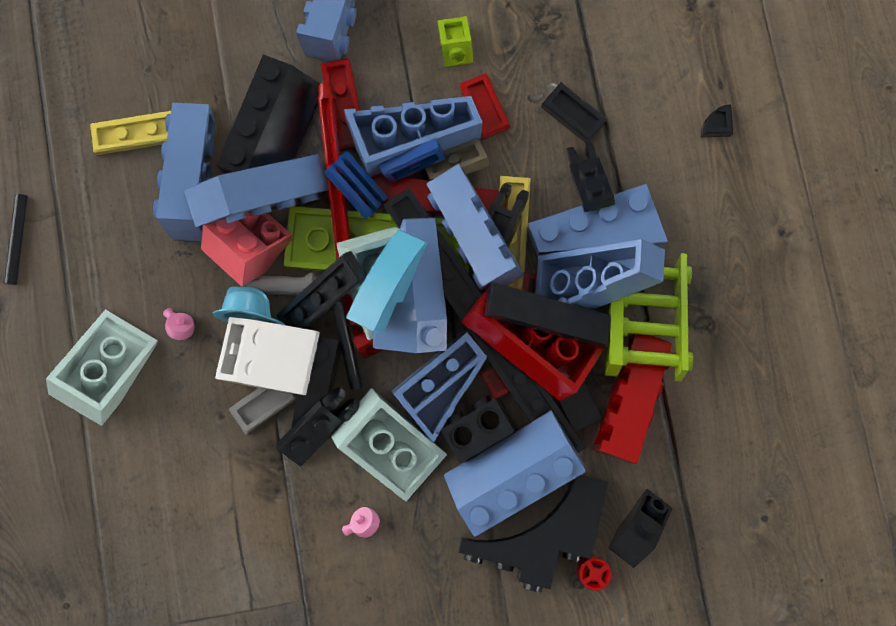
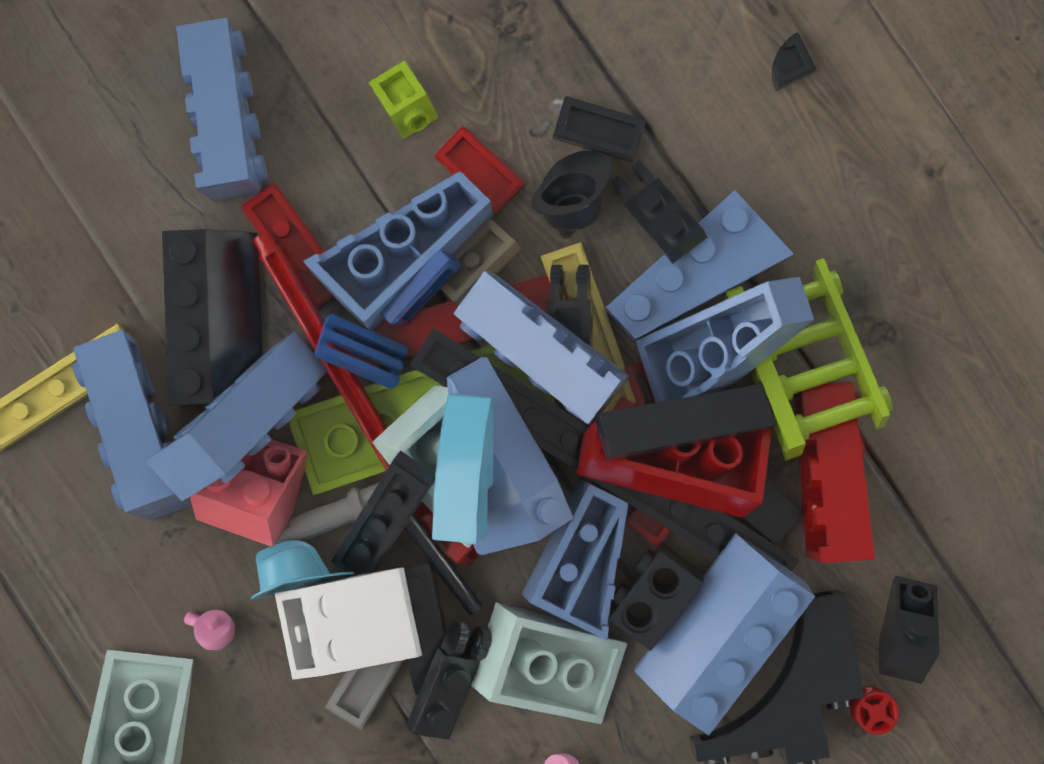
camera: 30 degrees left, 5 degrees up
(538, 144) = (573, 191): none -> black piece

